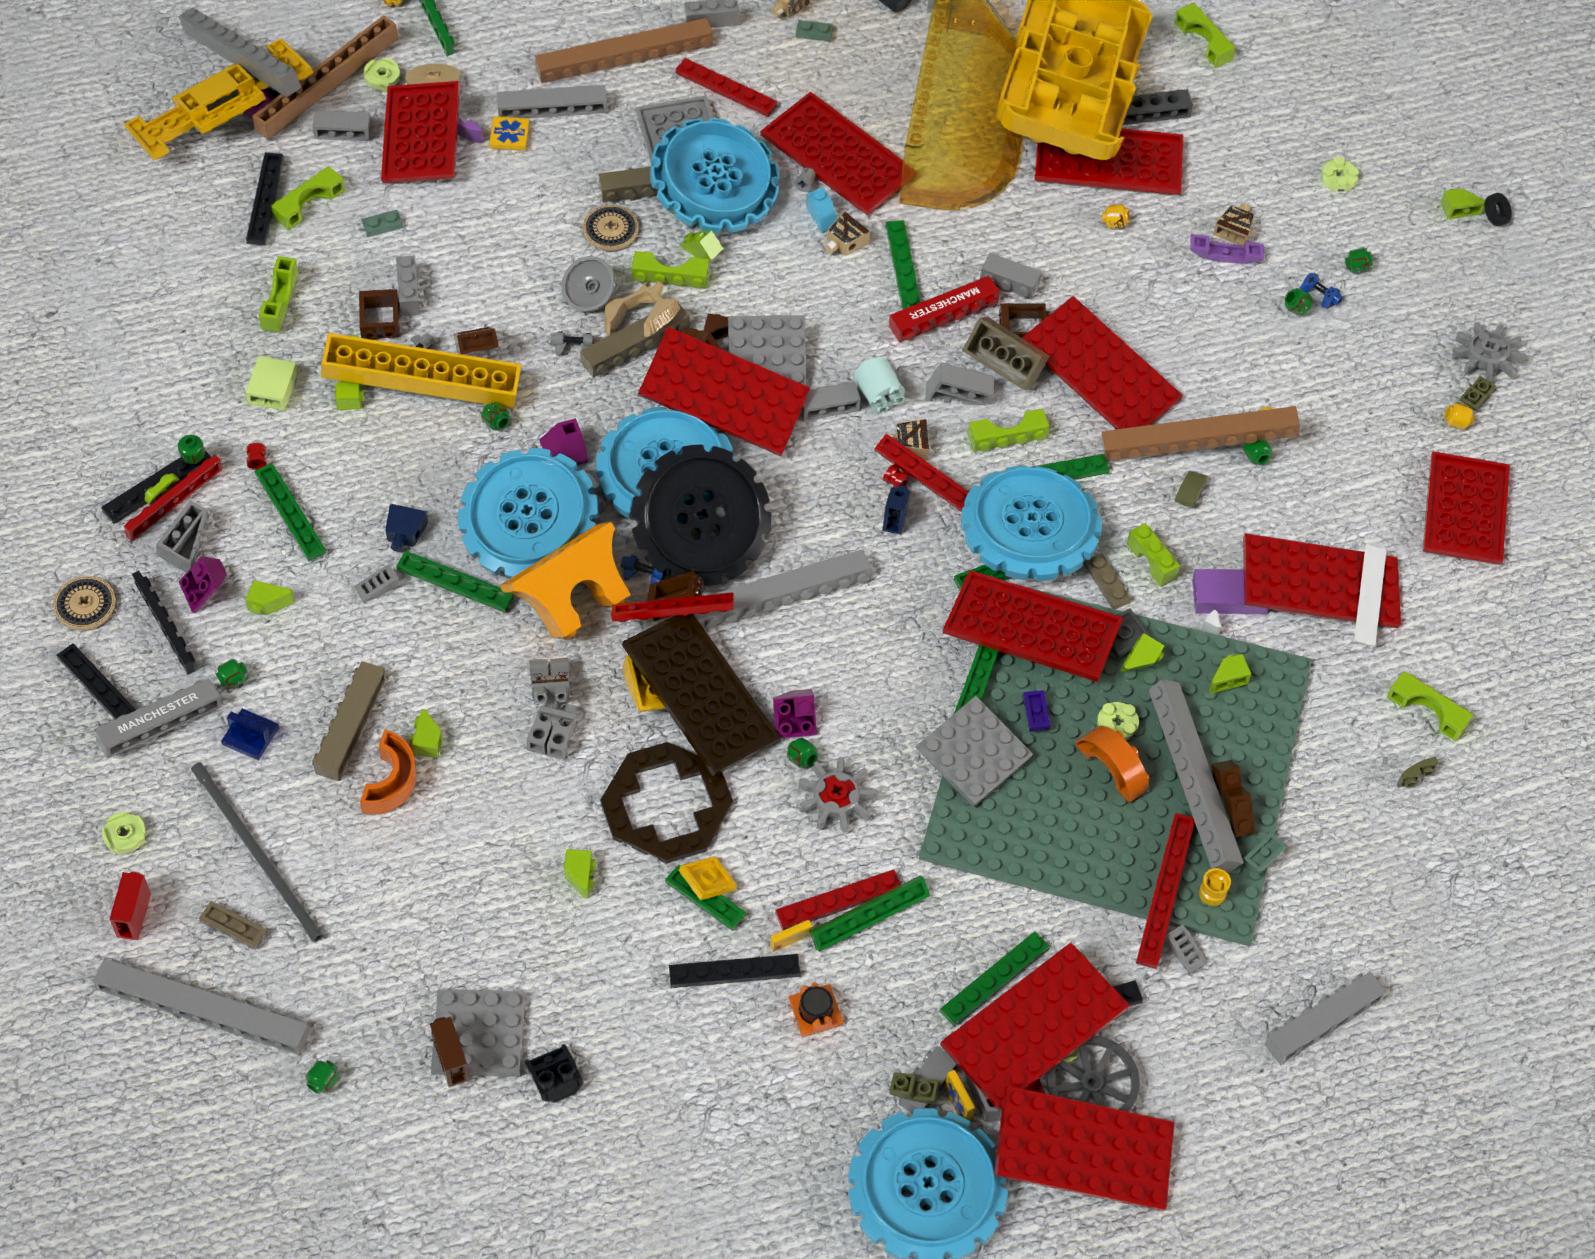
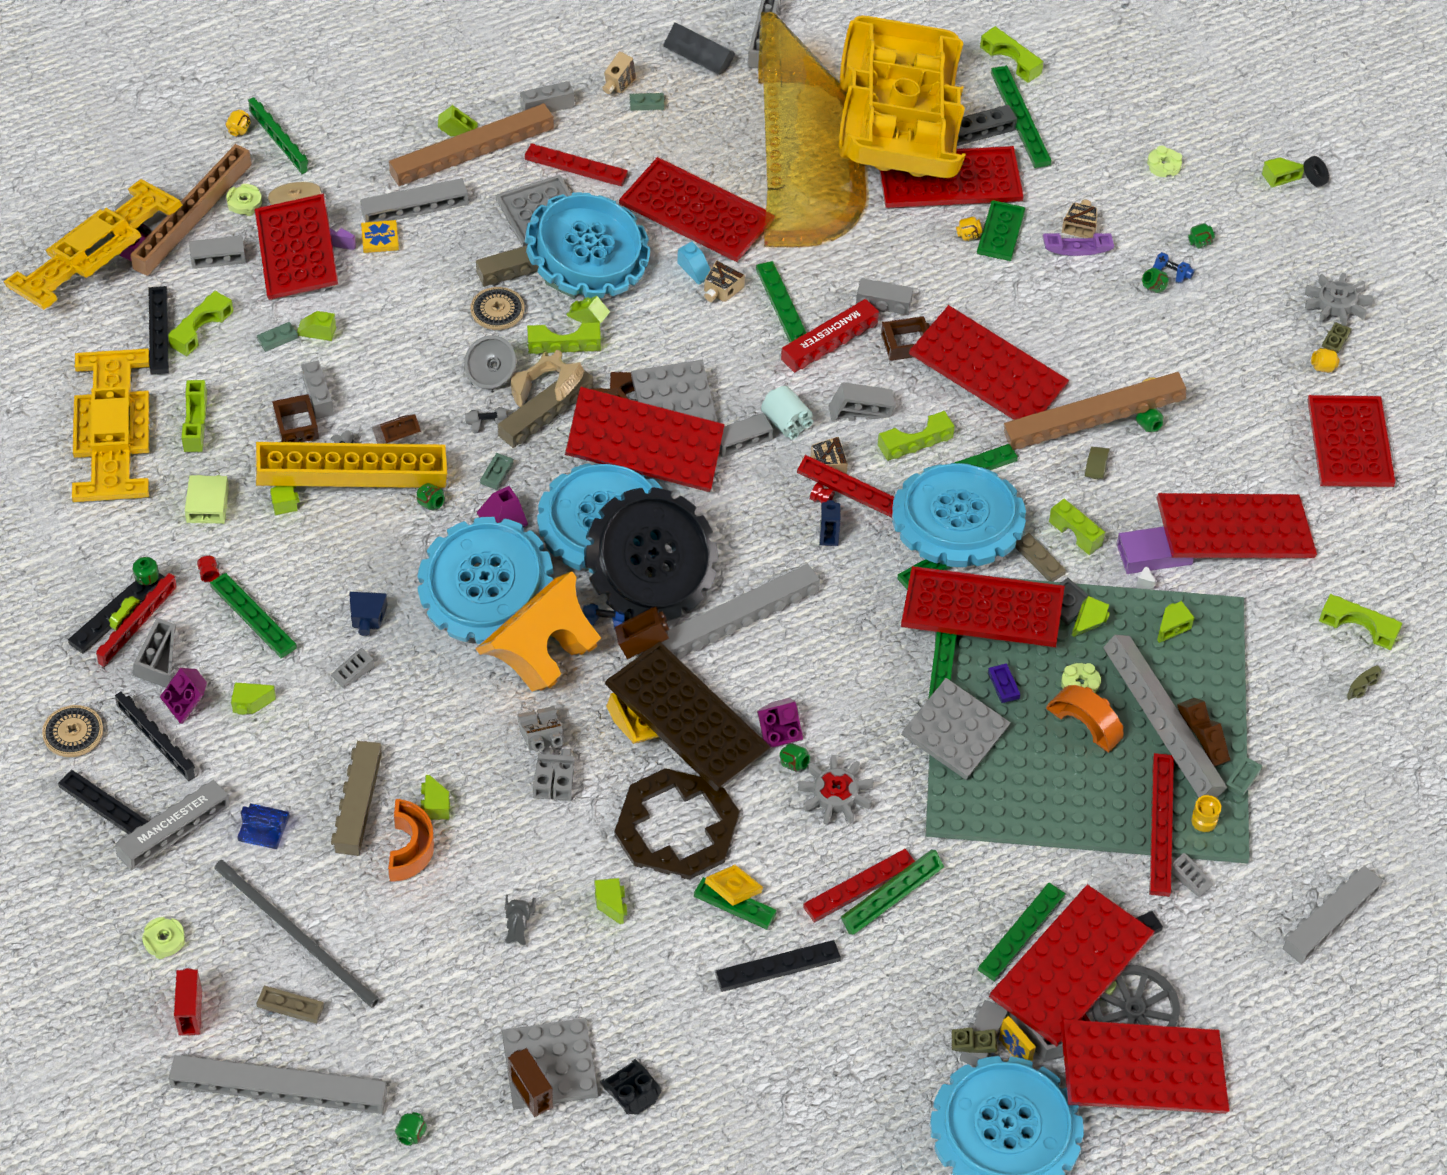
camera: 10 degrees left, 5 degrees down
(186, 289) = (103, 425): none -> yellow piece
(231, 673) = (233, 773): green head -> none
(240, 51) = (105, 195): light grey brick -> none
(425, 219) = (318, 326): none -> lime slope
(454, 581) = (427, 654): green plate -> none
(480, 872) = (518, 913): none -> dark grey hair
(569, 399) = (496, 471): none -> sand green plate
(613, 24) = (455, 122): none -> lime slope
(671, 607) = (646, 641): red plate -> none
(790, 935) = (824, 924): yellow tile -> none
(805, 179) = (671, 239): light grey bush -> none
(815, 1007) = (863, 985): piece -> none
(1005, 353) = (898, 366): dark tan brick -> none
(1149, 223) = (1001, 230): none -> green tile
(1201, 112) = (1024, 124): none -> green plate
(1370, 595) = (1283, 531): white sticker -> none

